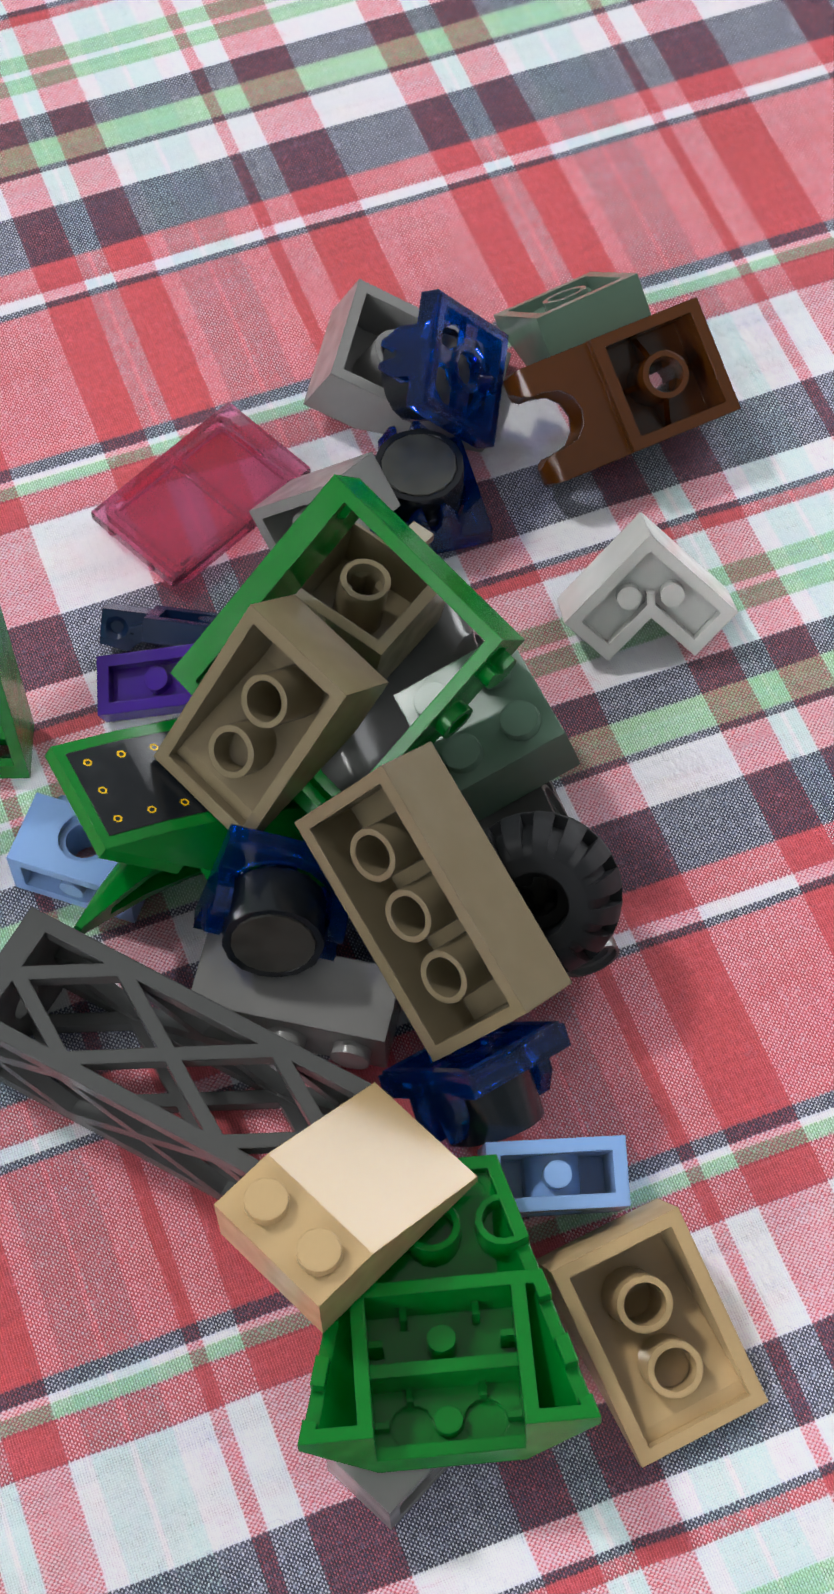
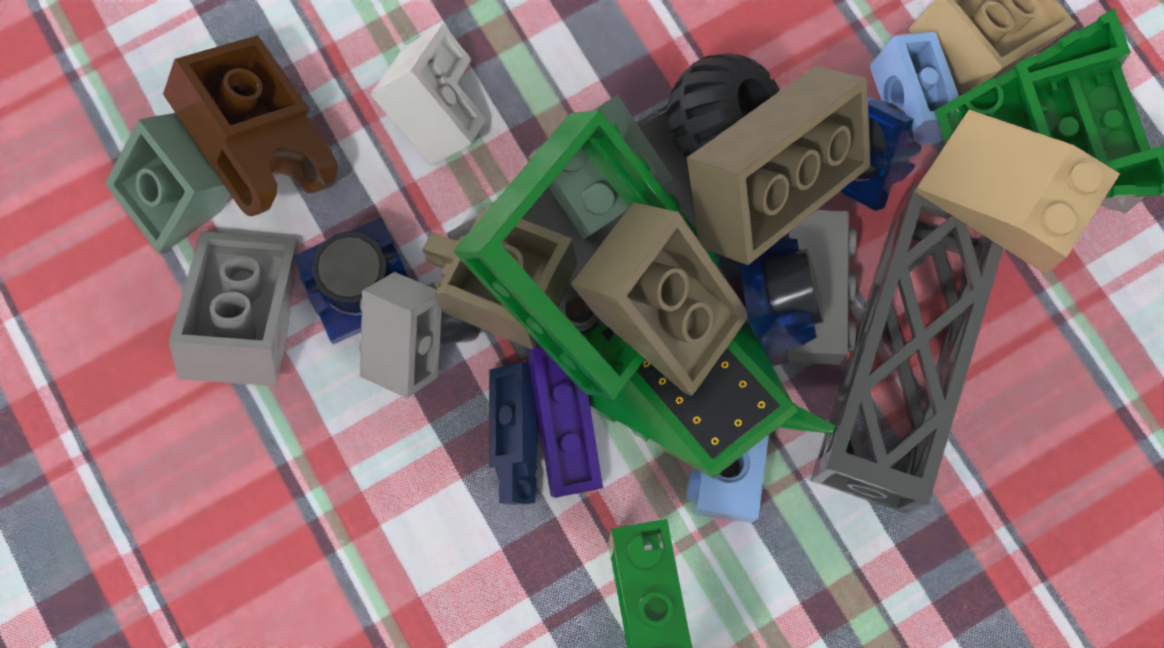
camera: 100 degrees left, 15 degrees up
(198, 495) = (374, 455): clear pink piece -> none
(447, 374) = (265, 253): clear blue piece -> none

